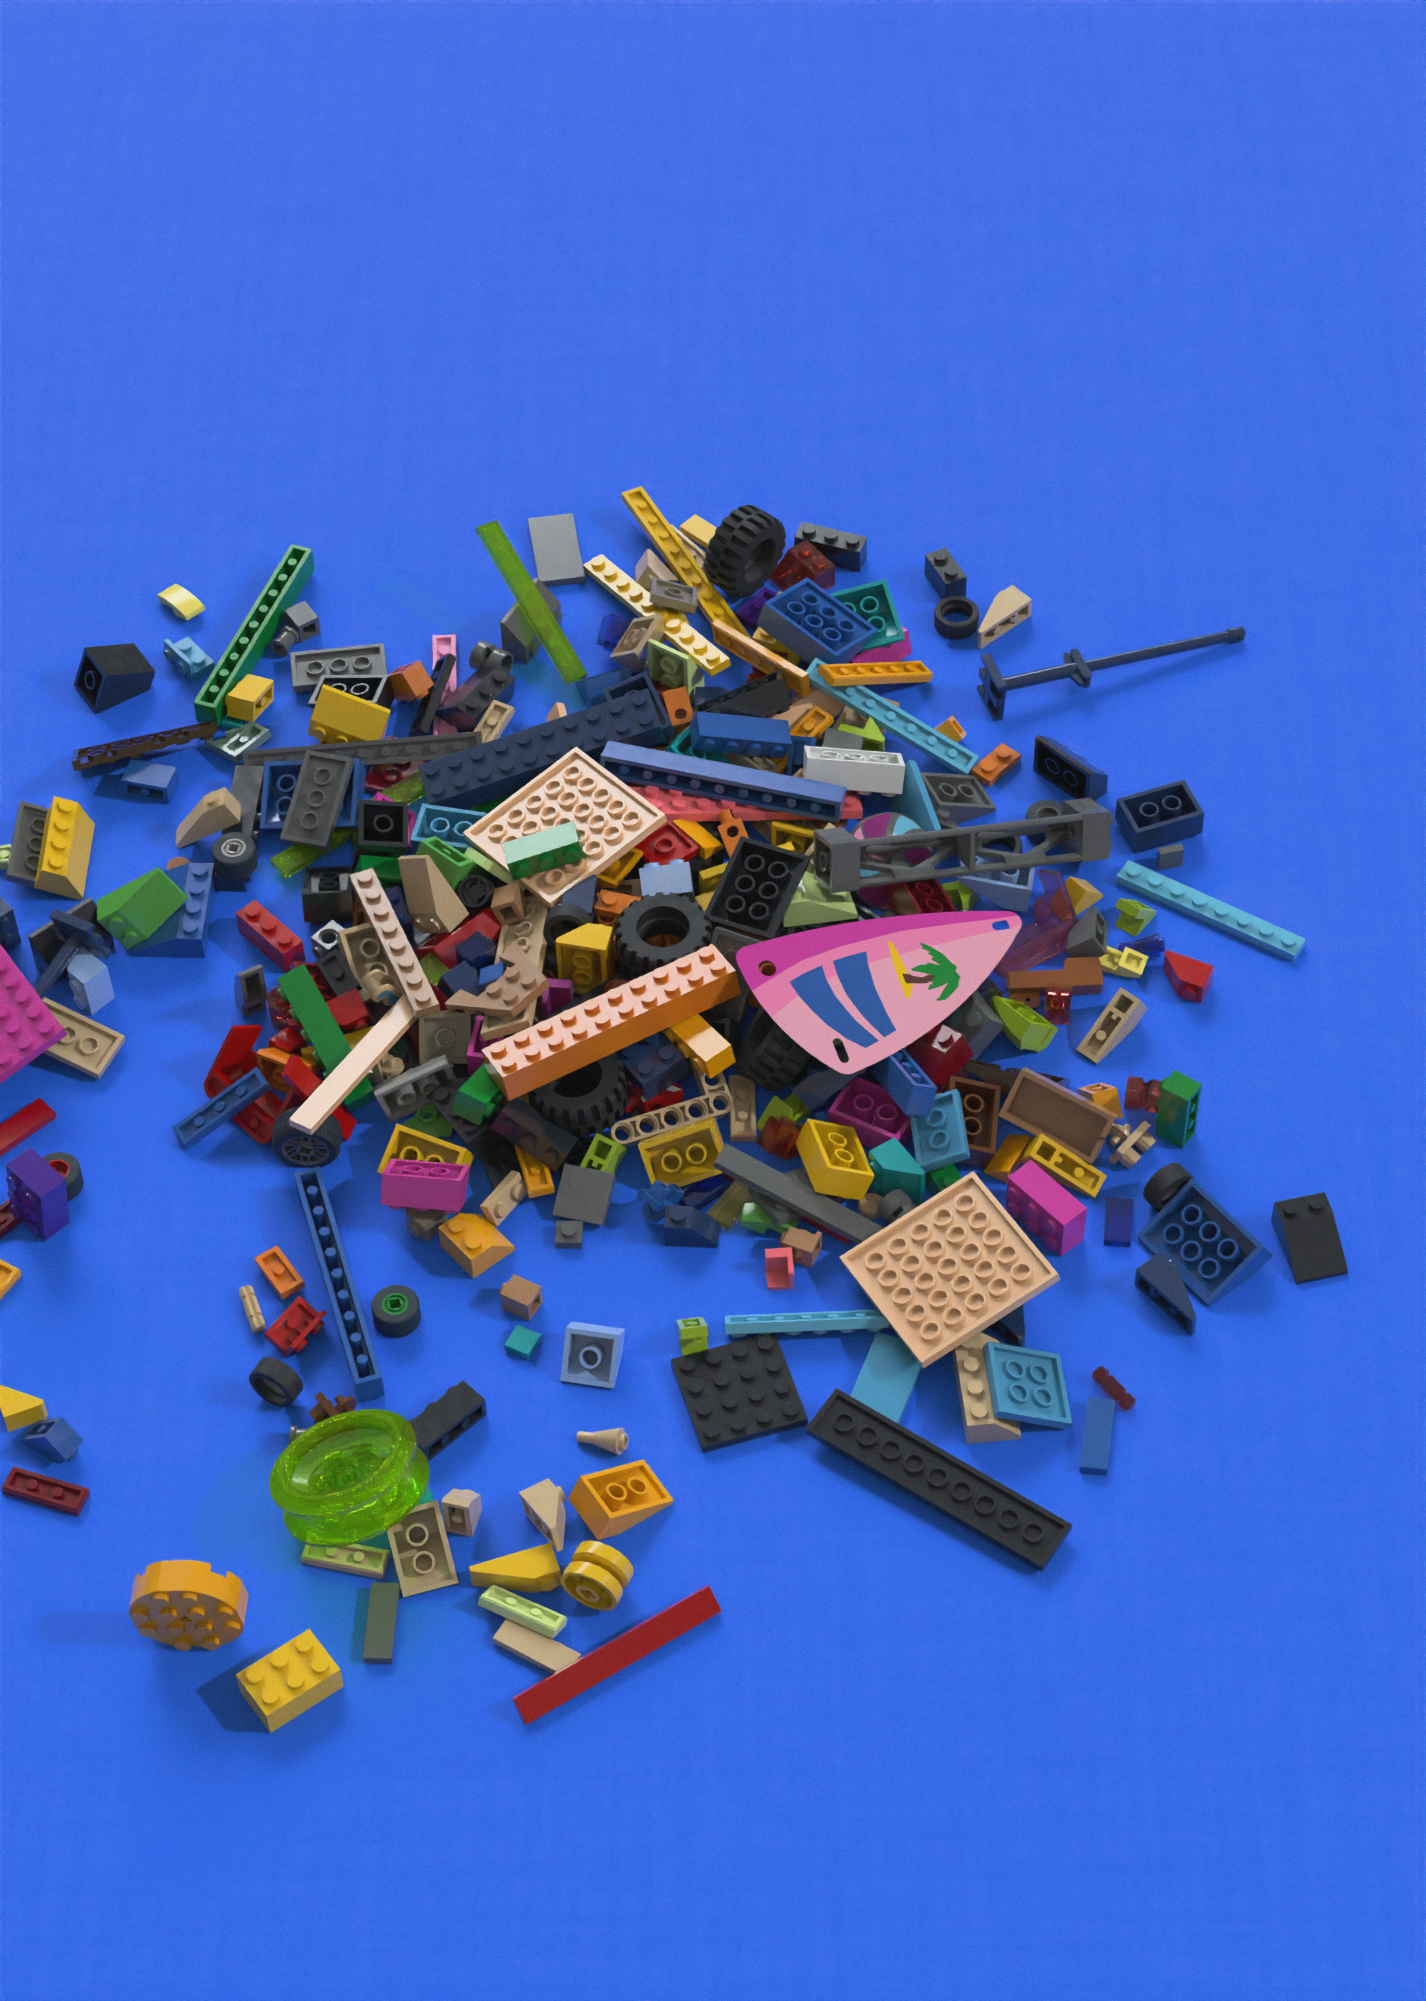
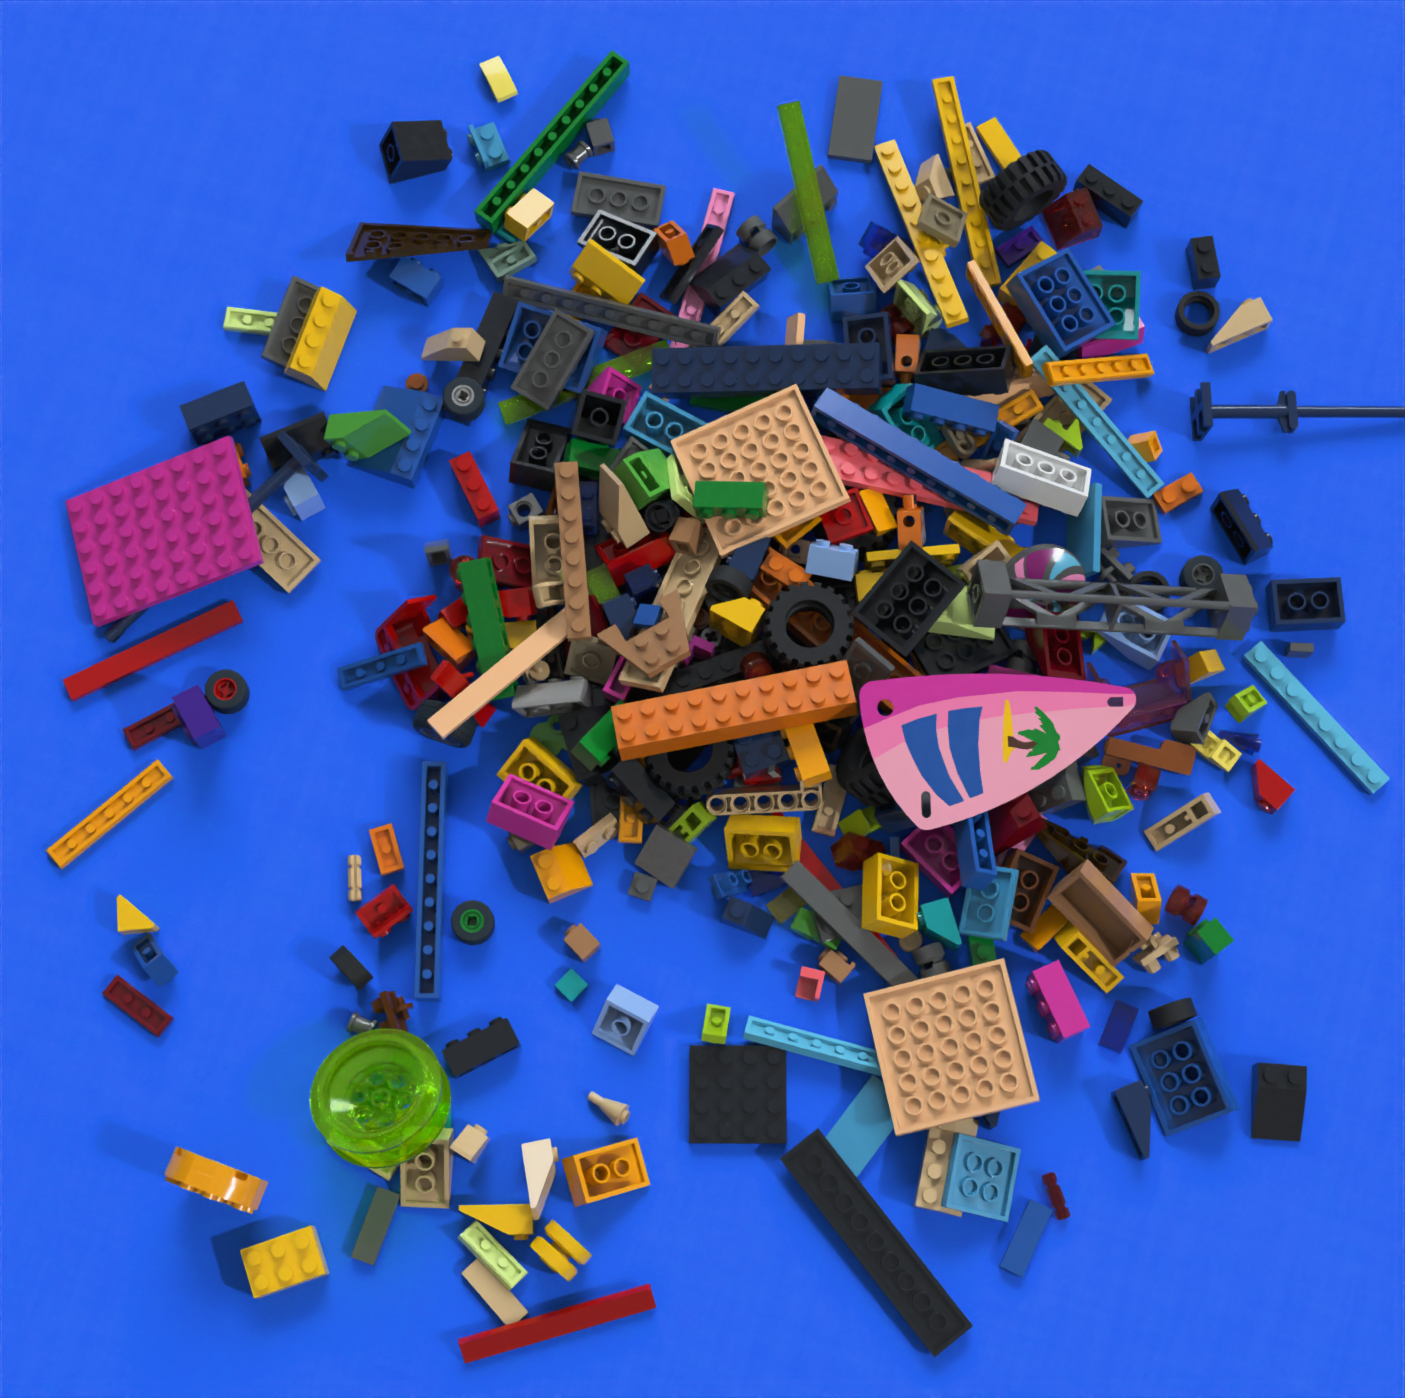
camera: 15 degrees right, 25 degrees up
(338, 973) = (518, 561): black plate -> none

